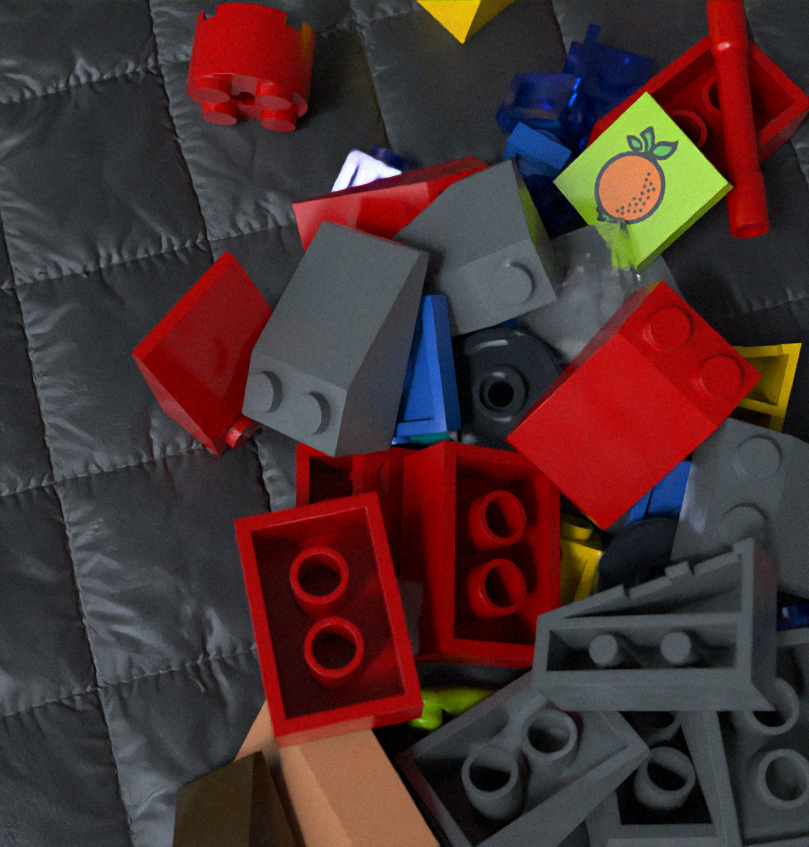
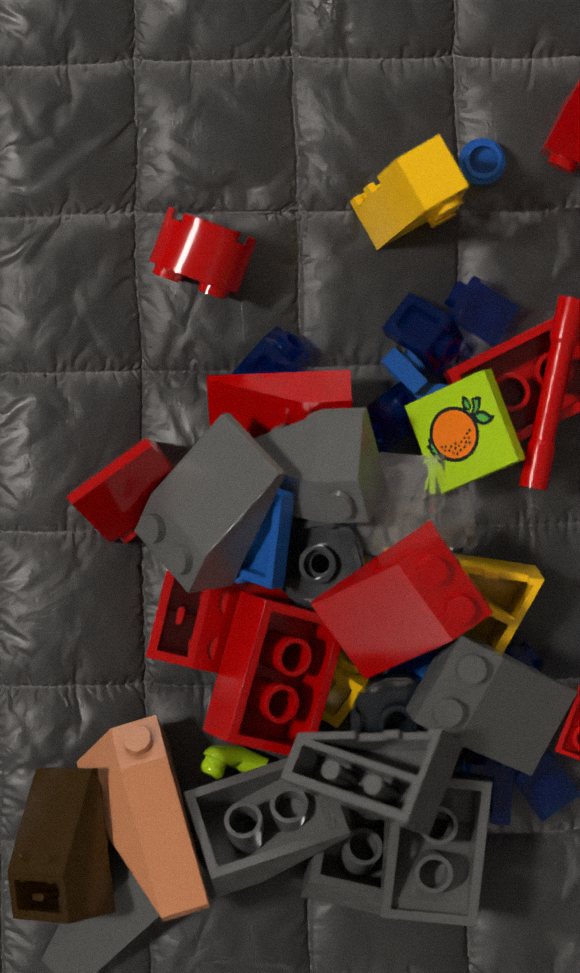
camera: 20 degrees right, 15 degrees up
(328, 620) = (157, 702): red brick -> none

